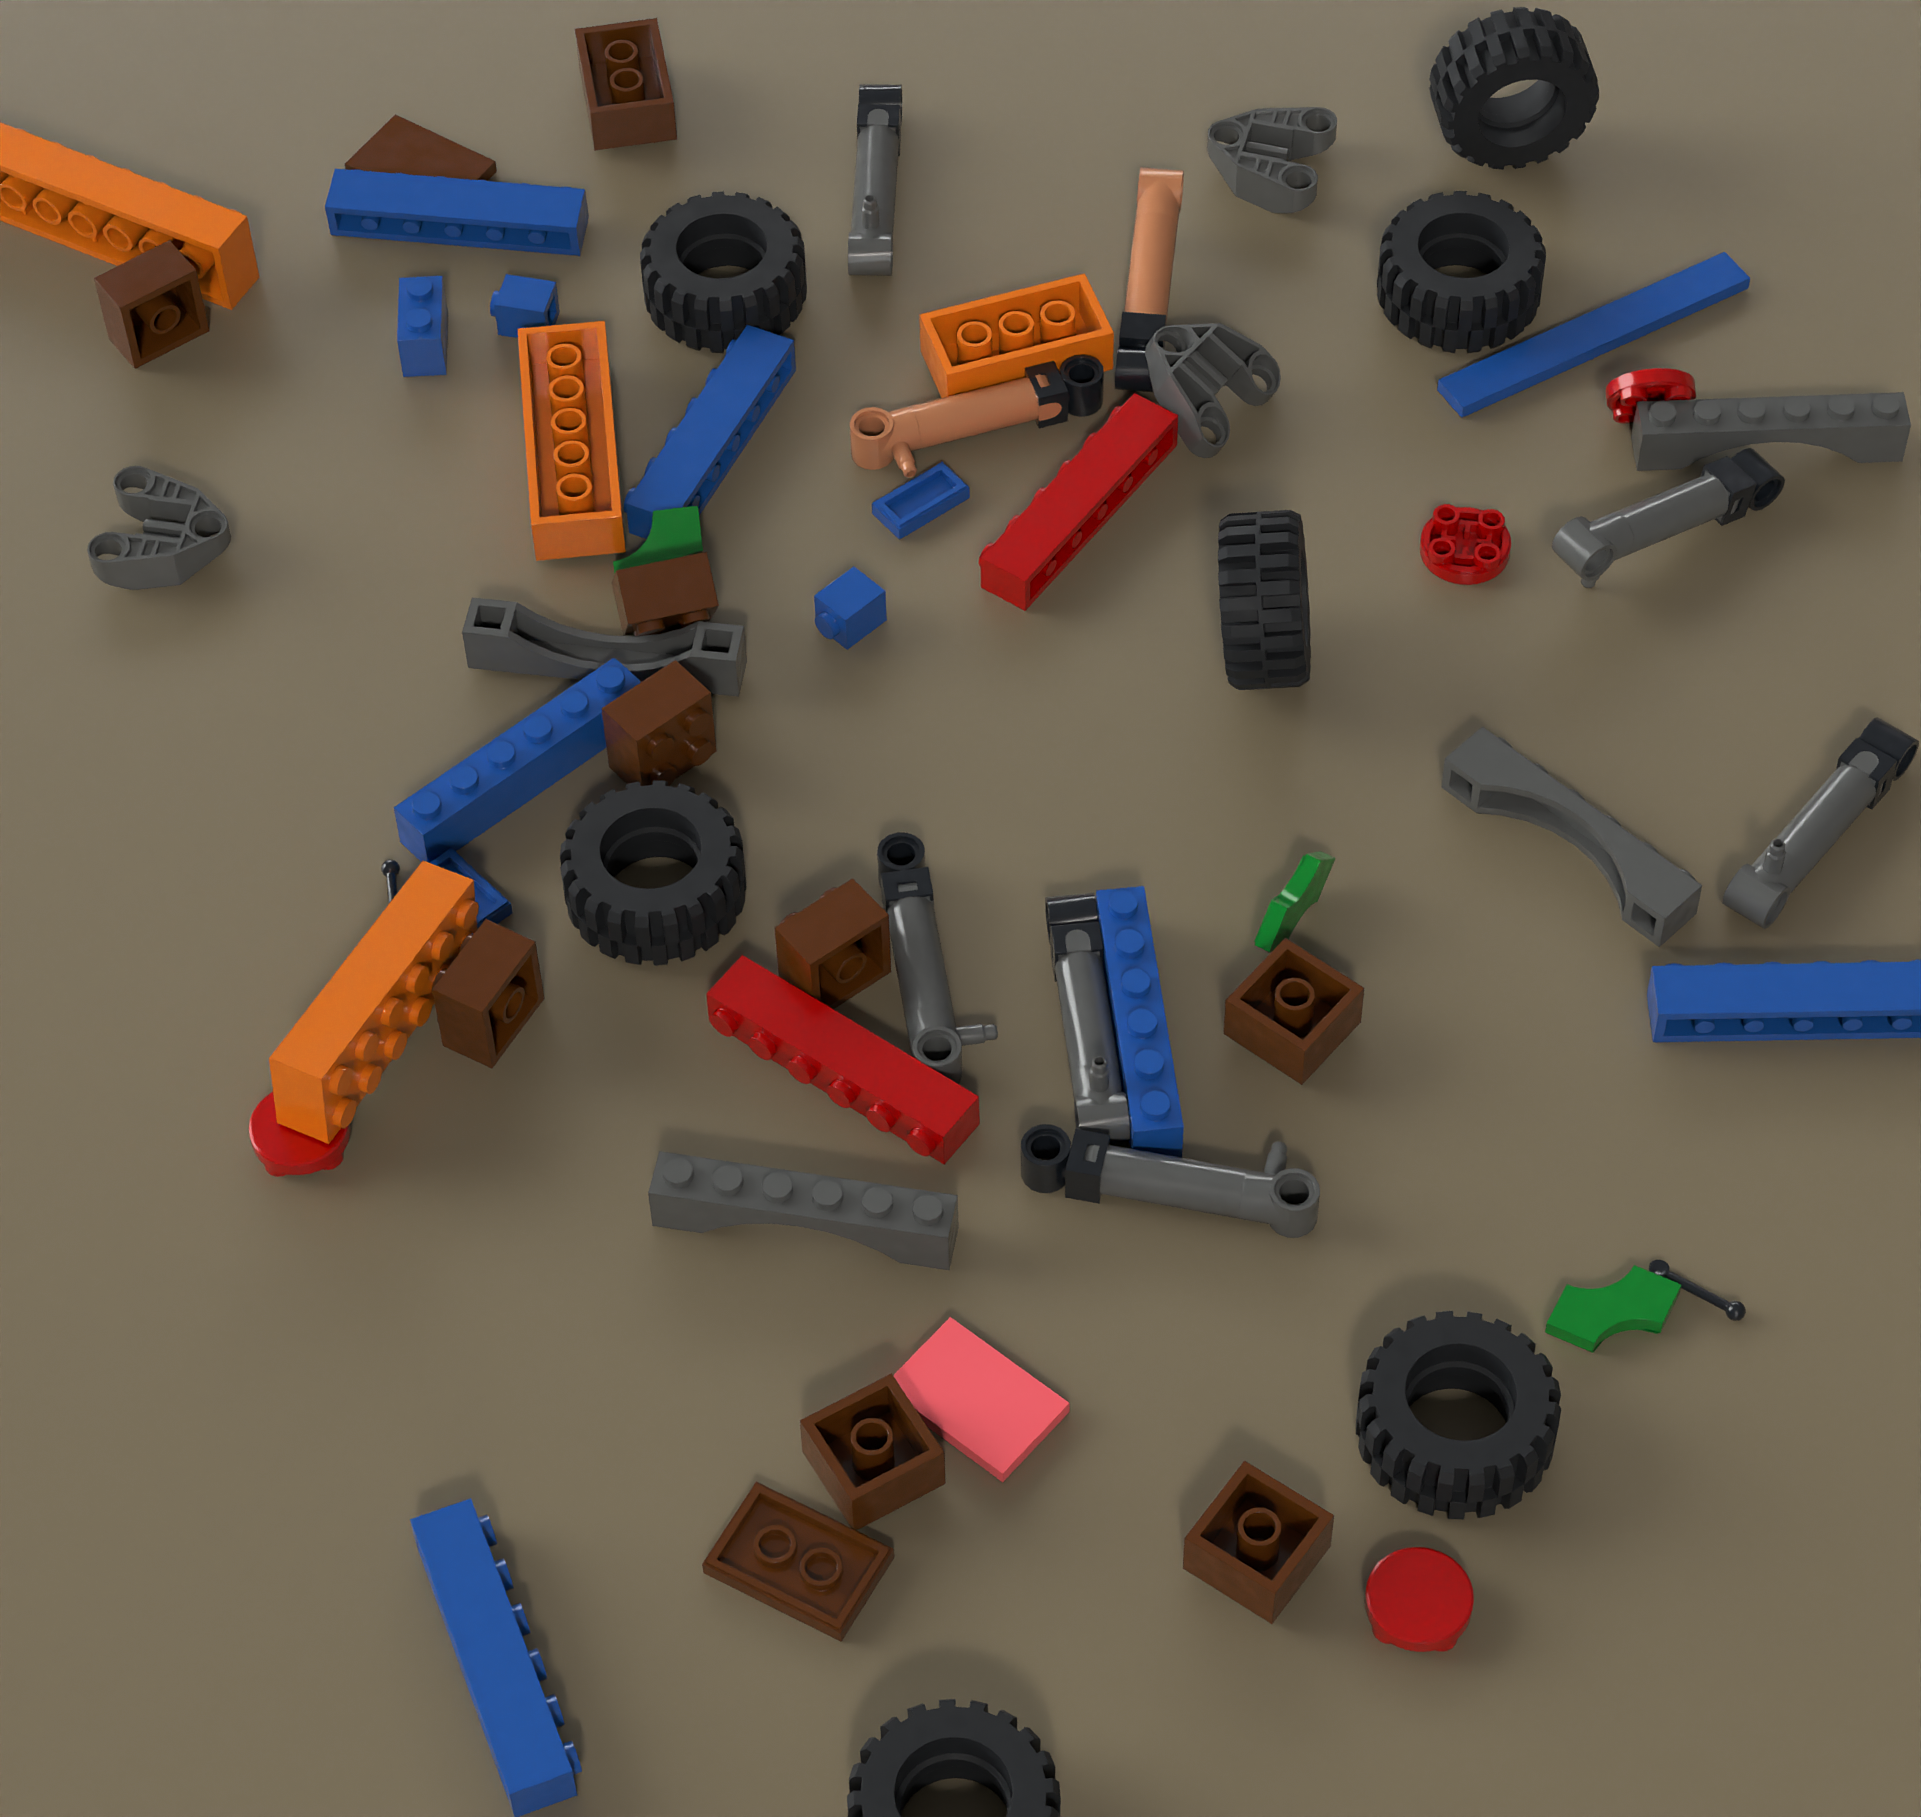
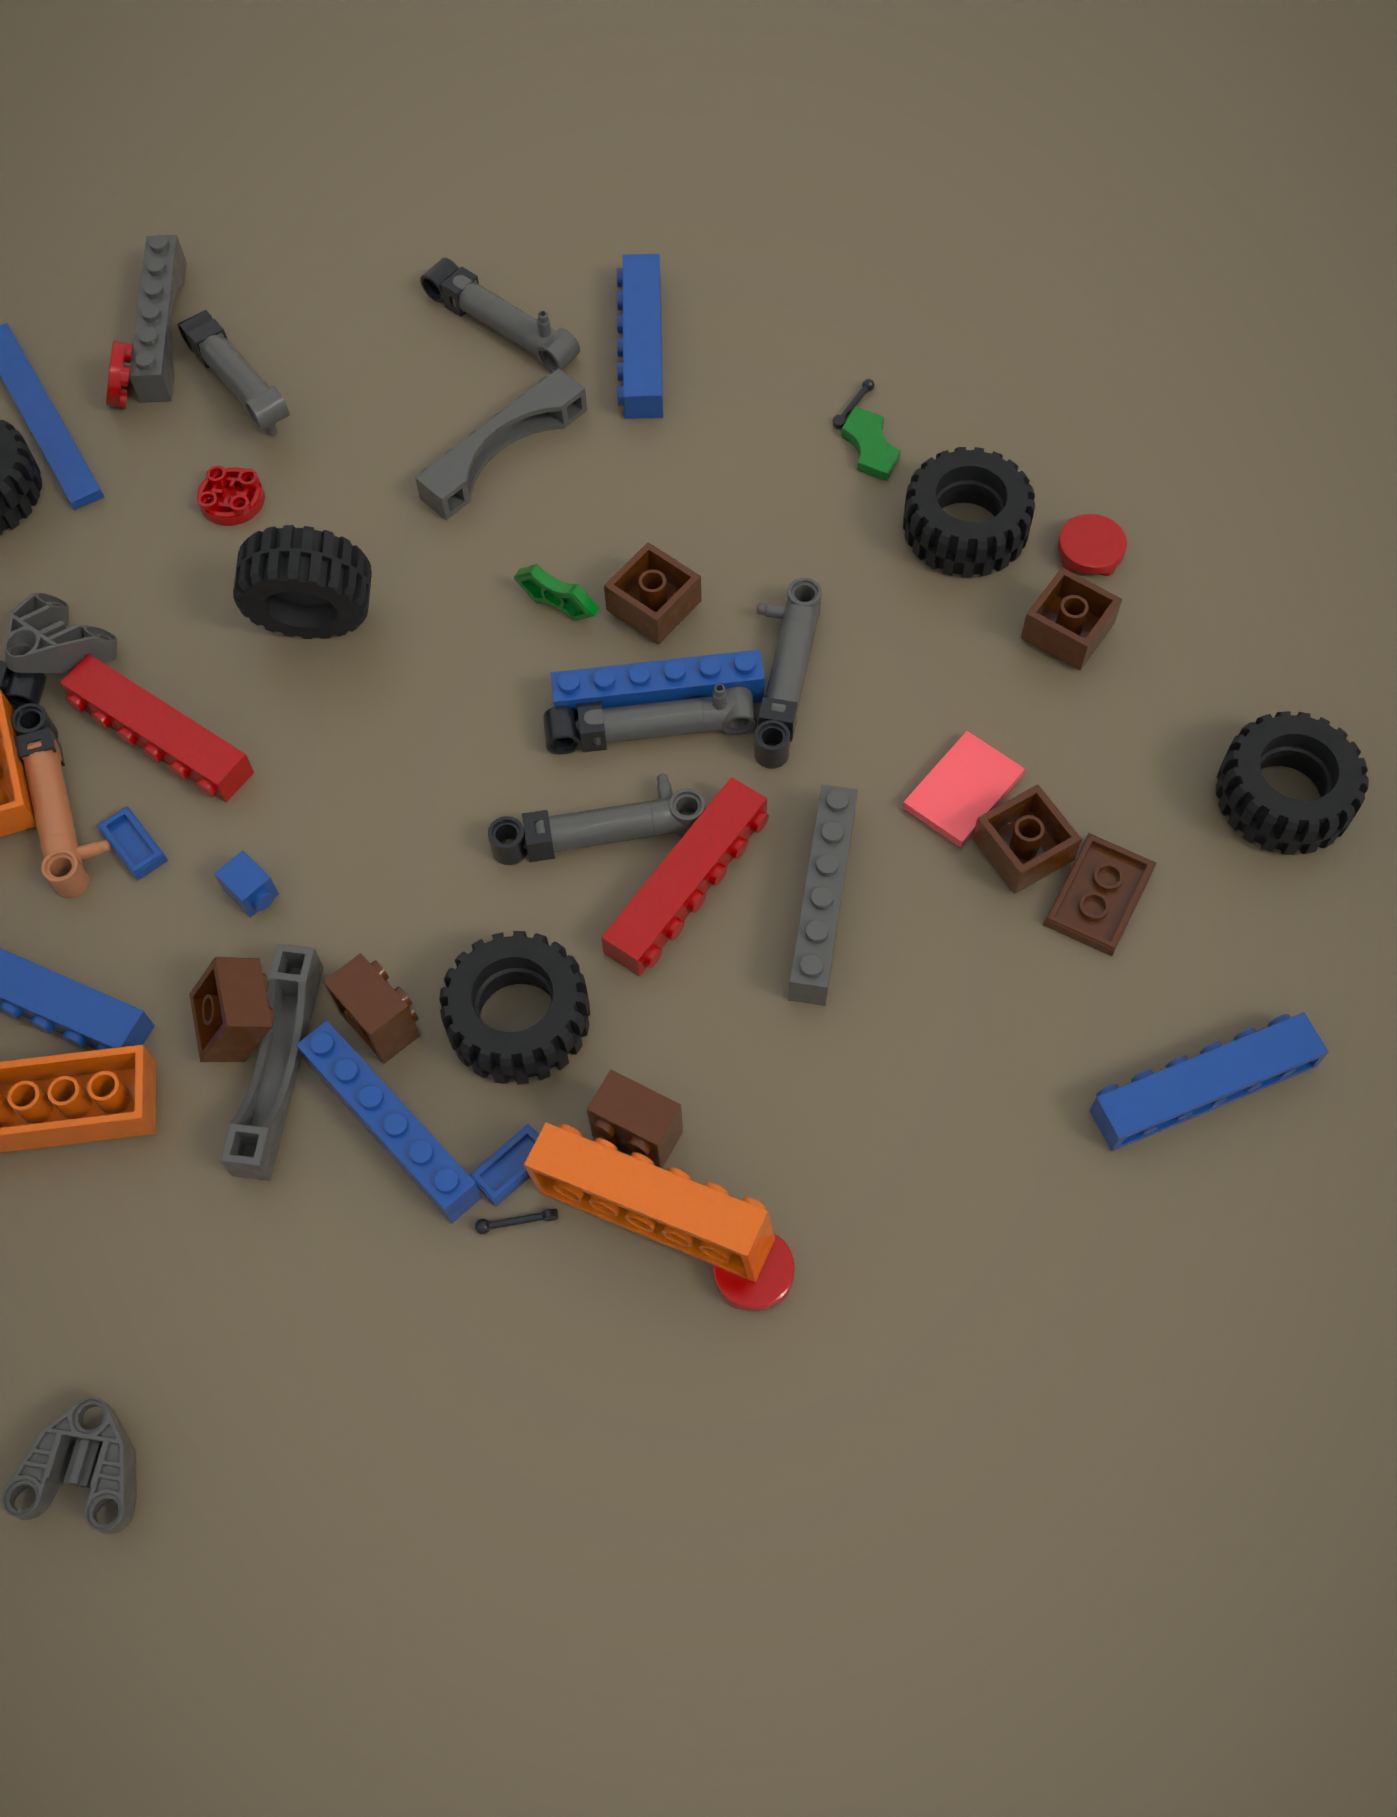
camera: 90 degrees left, 10 degrees up
(672, 535) = (165, 1014): green tile -> none
(835, 945) = (595, 873): reddish brown brick -> none

